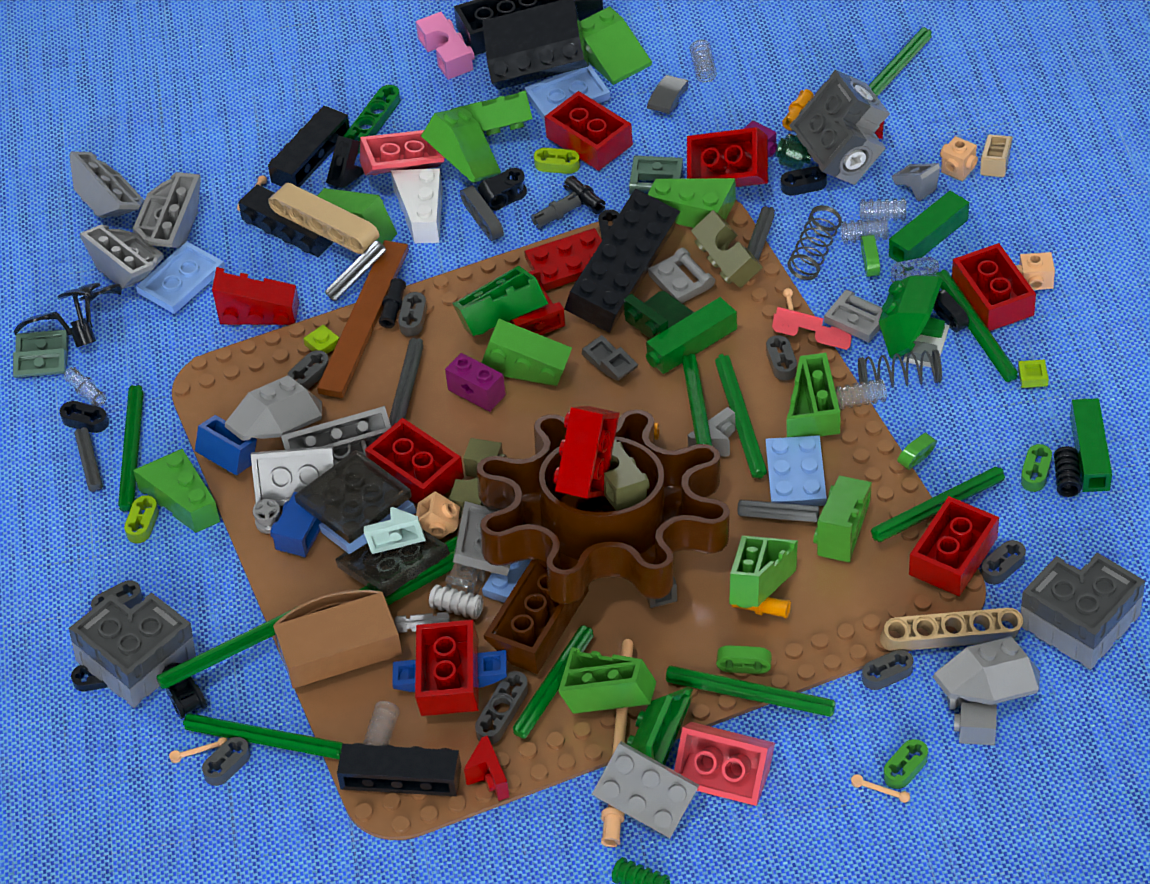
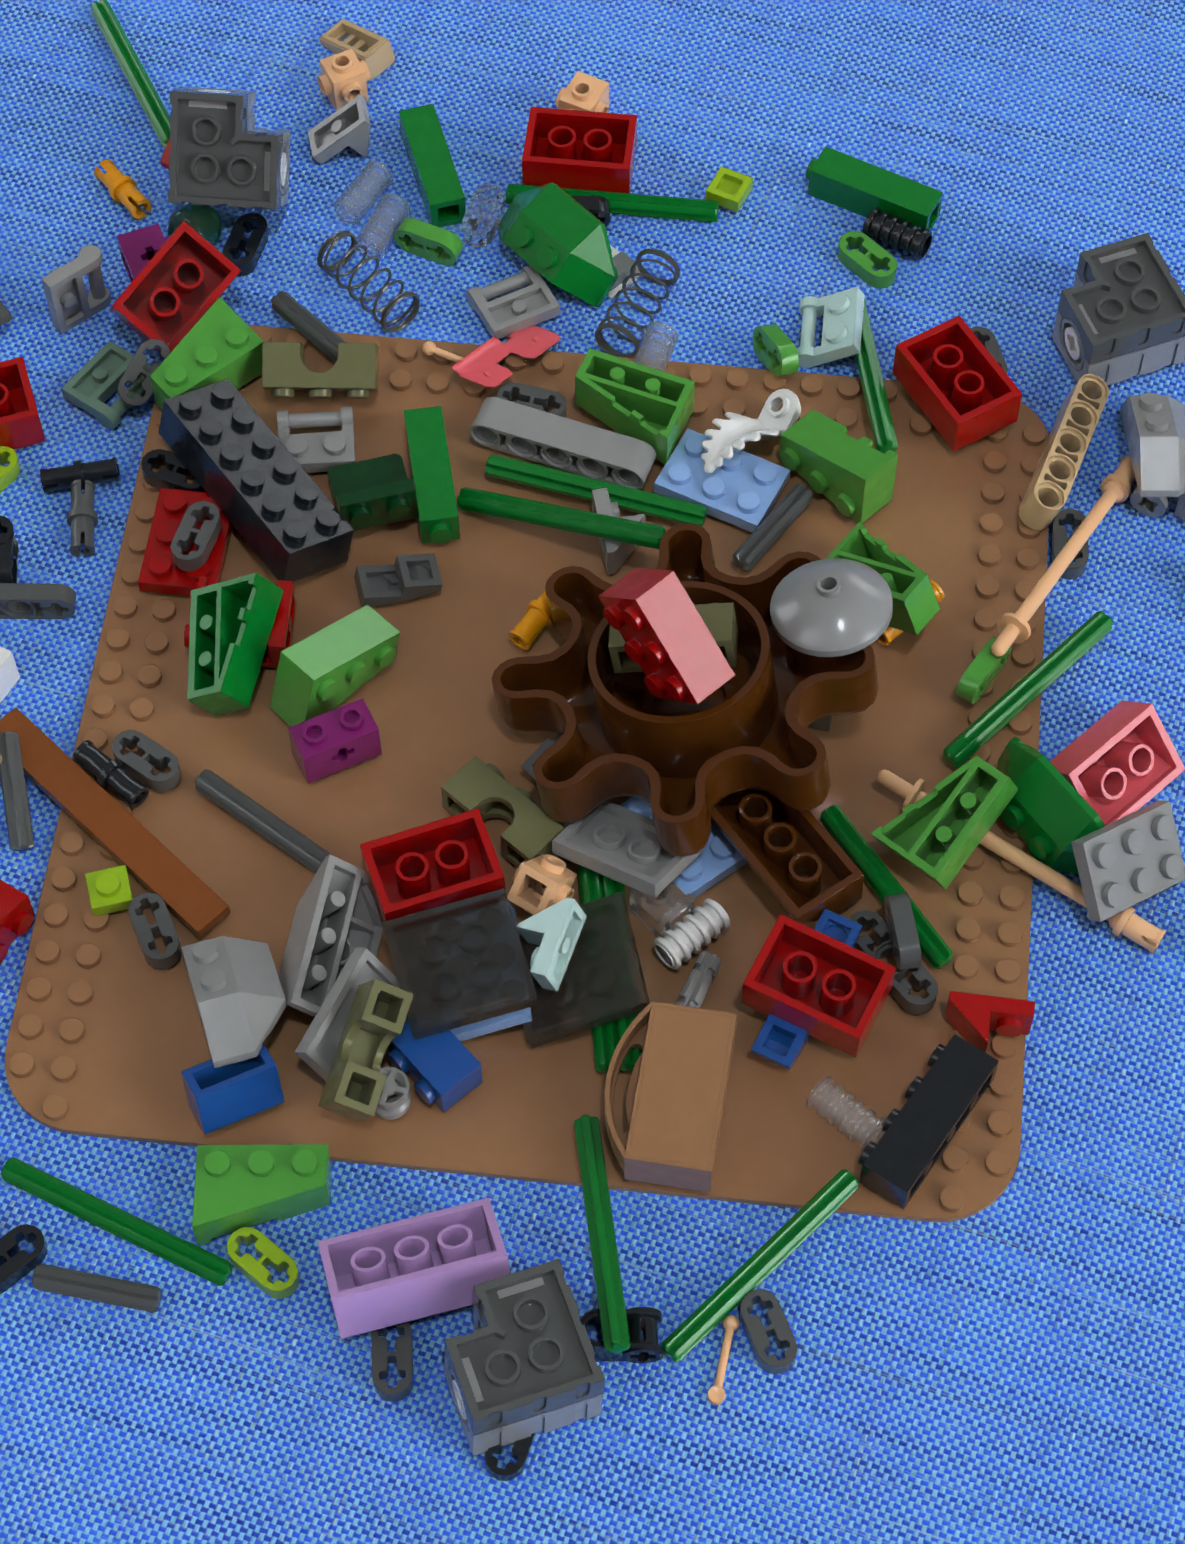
camera: 65 degrees left, 10 degrees up
(157, 565) = (412, 1266): none -> lavender brick
(257, 485) = (355, 1074): none -> olive arch
(515, 694) = (902, 931): none -> dark grey beam
(566, 254) = (189, 533): none -> dark grey beam
(664, 172) = (135, 368): none -> dark grey beam
(688, 534) = (831, 607): none -> light grey dish
(693, 116) = (67, 292): none -> light grey plate
(761, 383) = (562, 443): none -> light grey beam
(838, 460) = (740, 429): none -> white plant
(840, 661) = (1015, 627): none -> light nougat bar
(959, 470) = (840, 331): none -> light aqua plate

